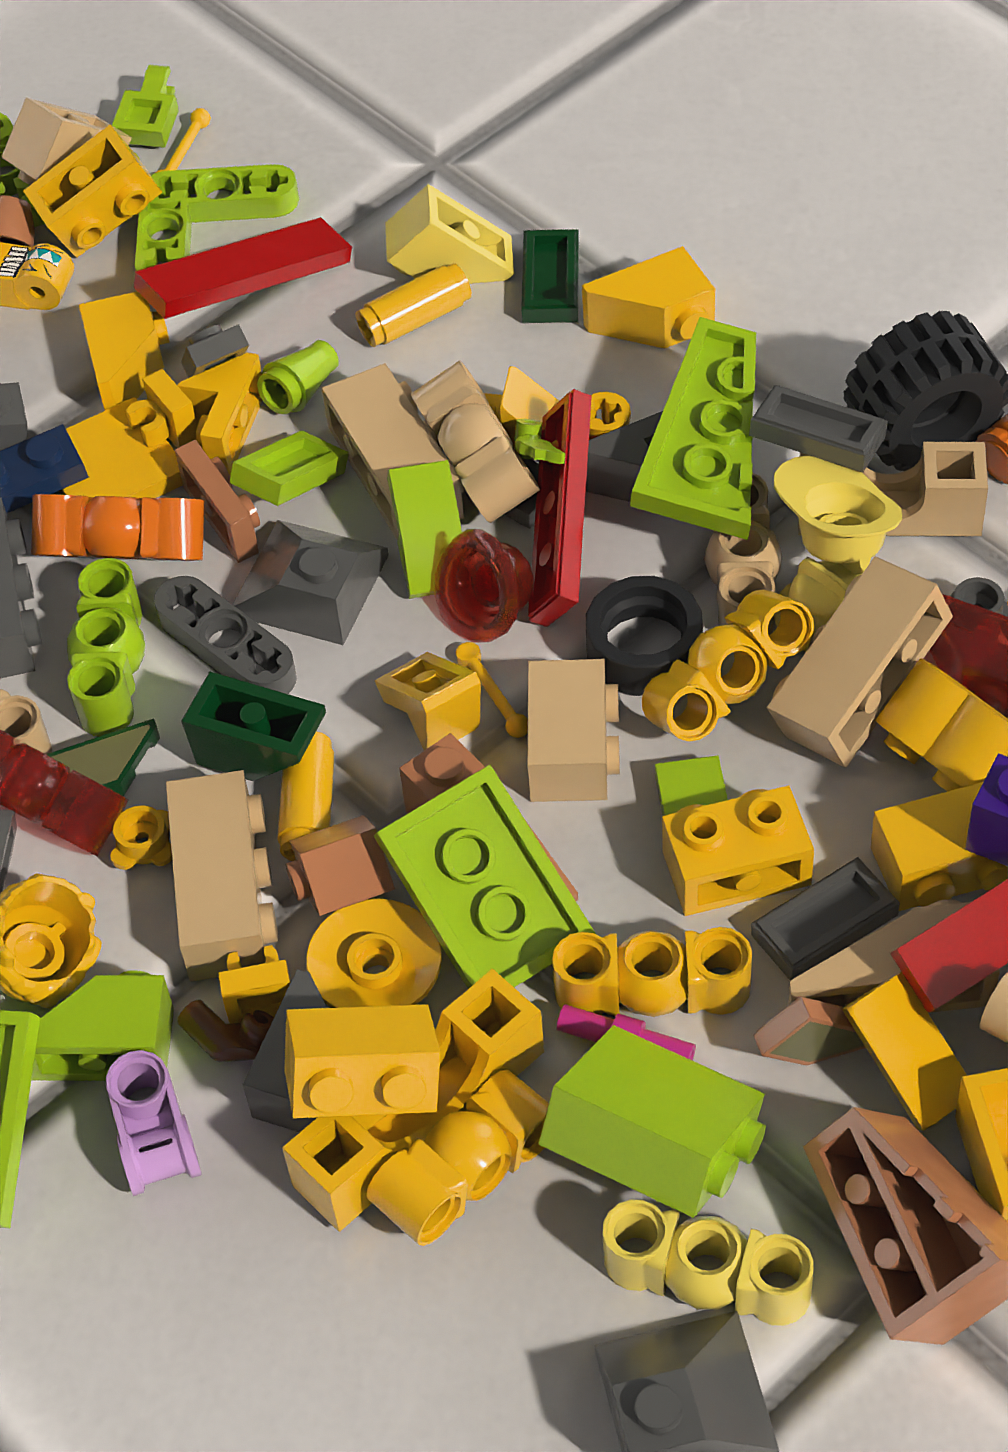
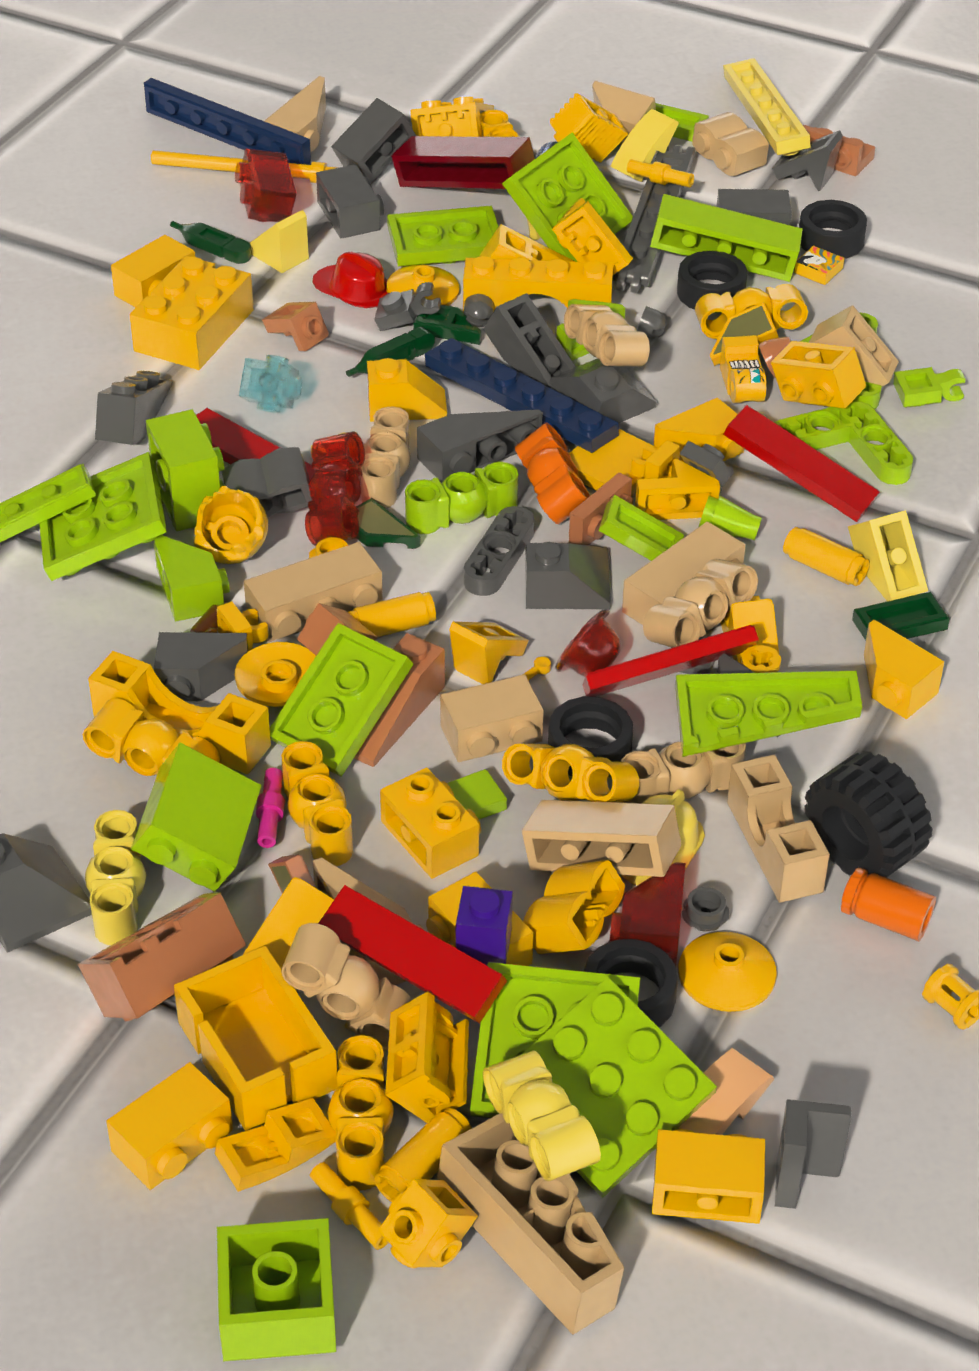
camera: 65 degrees right, 10 degrees down
(151, 1131) = (135, 614): lavender piece -> none
(199, 120) = (940, 414): yellow hinge -> none
(249, 727) = (416, 561): dark green slope -> none
(361, 1061) = (174, 661): yellow brick -> none
(425, 521) = (624, 597): lime slope -> none
(531, 445) = (703, 627): lime piece -> none
(818, 428) = (785, 756): dark grey tile -> none
(825, 918) = (399, 882): dark grey tile -> none
(837, 510) = (717, 781): light yellow piece -> none

